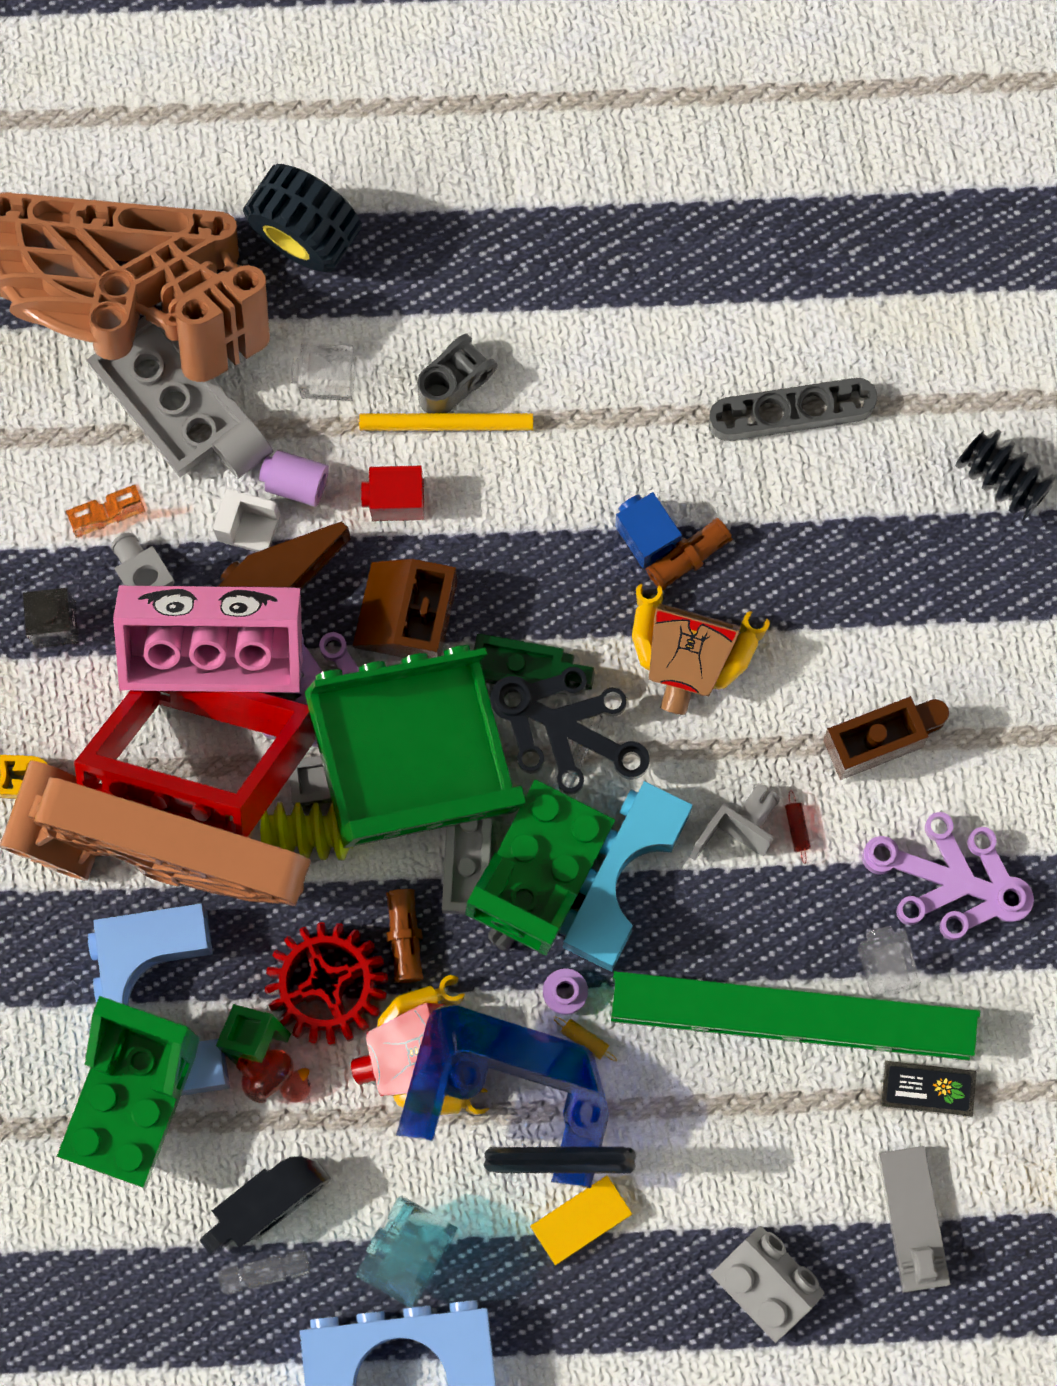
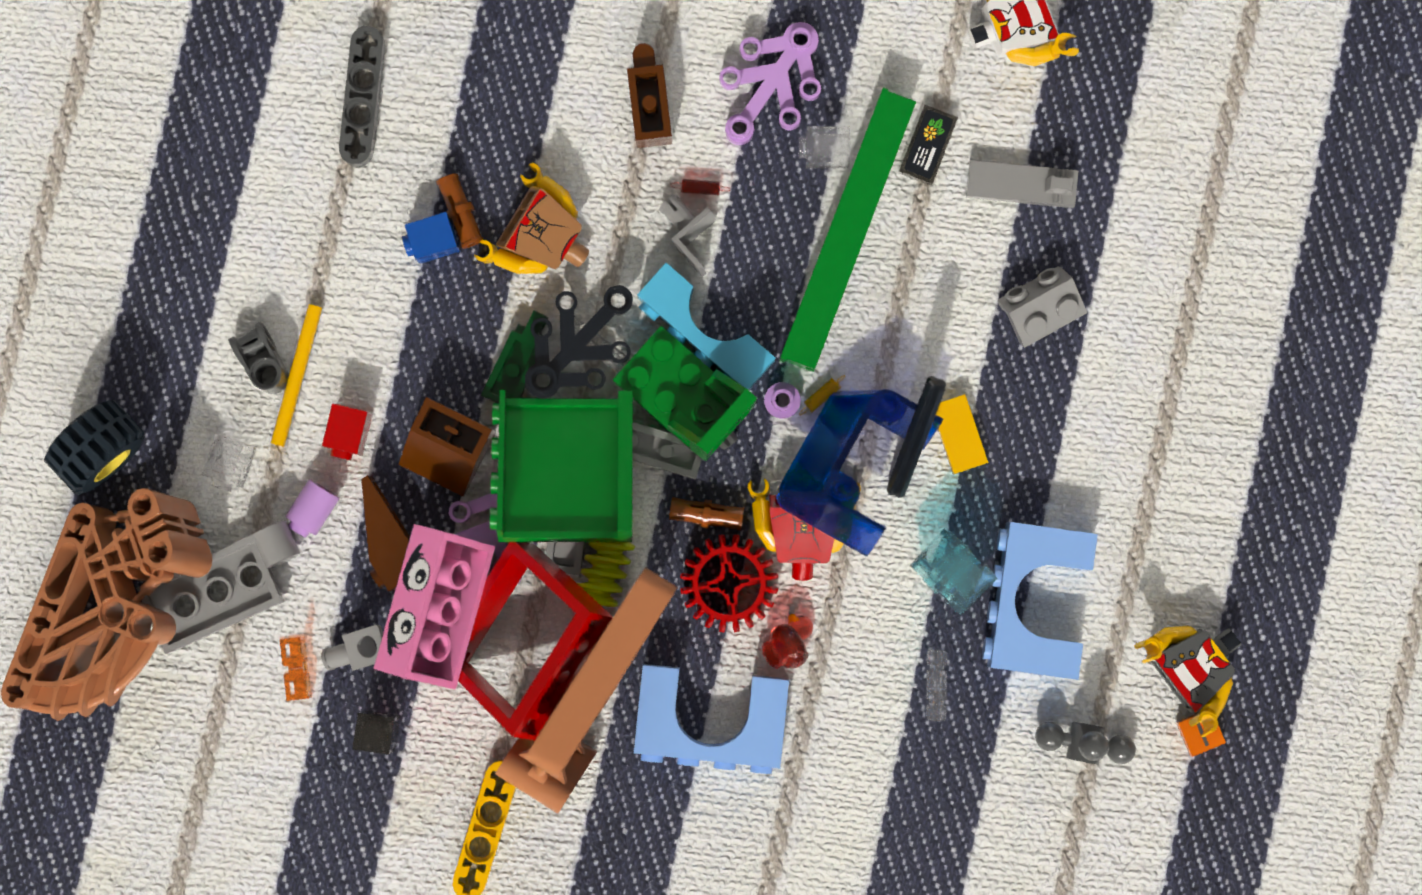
camera: 75 degrees left, 10 degrees up
(130, 1091) = (780, 757): green bracket -> none
(246, 521) = (337, 556): white panel -> none
(249, 1034) = (755, 651): green panel -> none
(264, 1202) = (885, 671): black piece -> none

